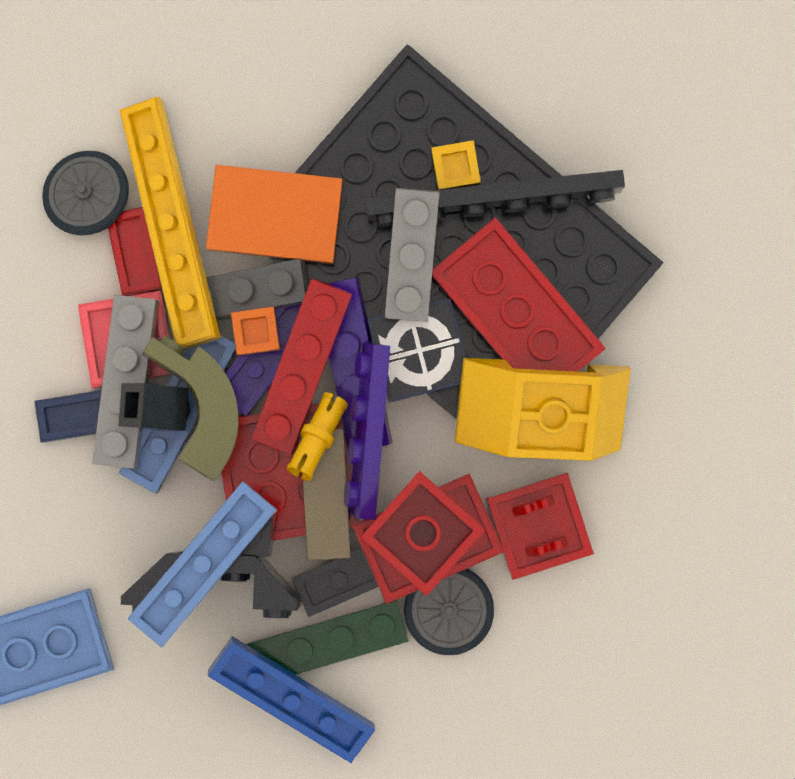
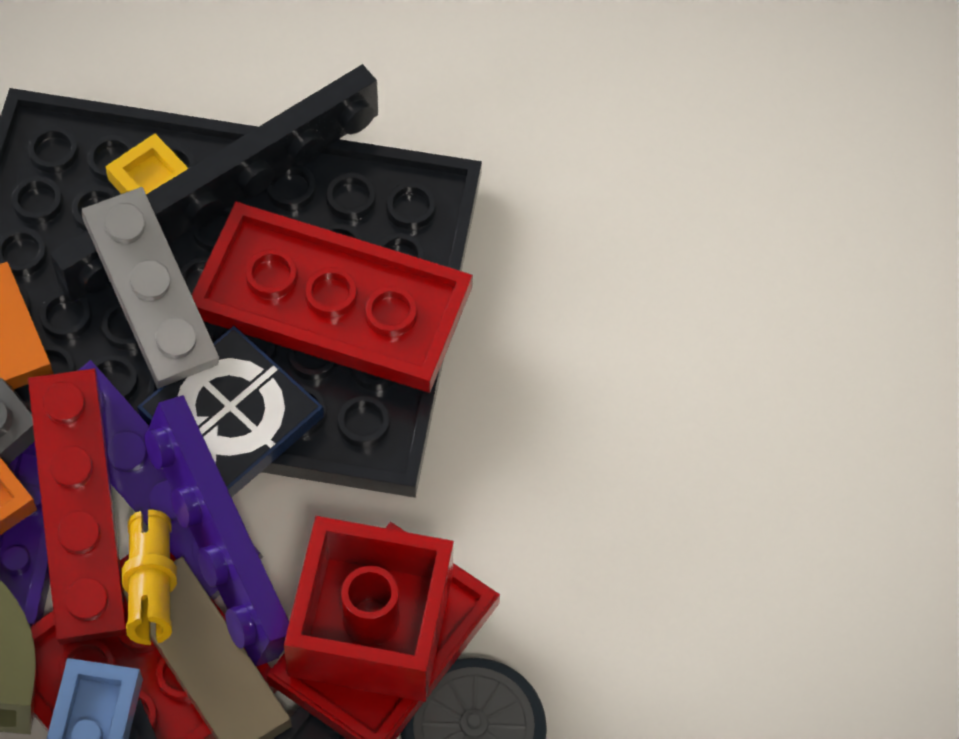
camera: 35 degrees left, 25 degrees down
(539, 526) = (531, 547): red plate -> none
(541, 410) = (429, 385): yellow slope -> none

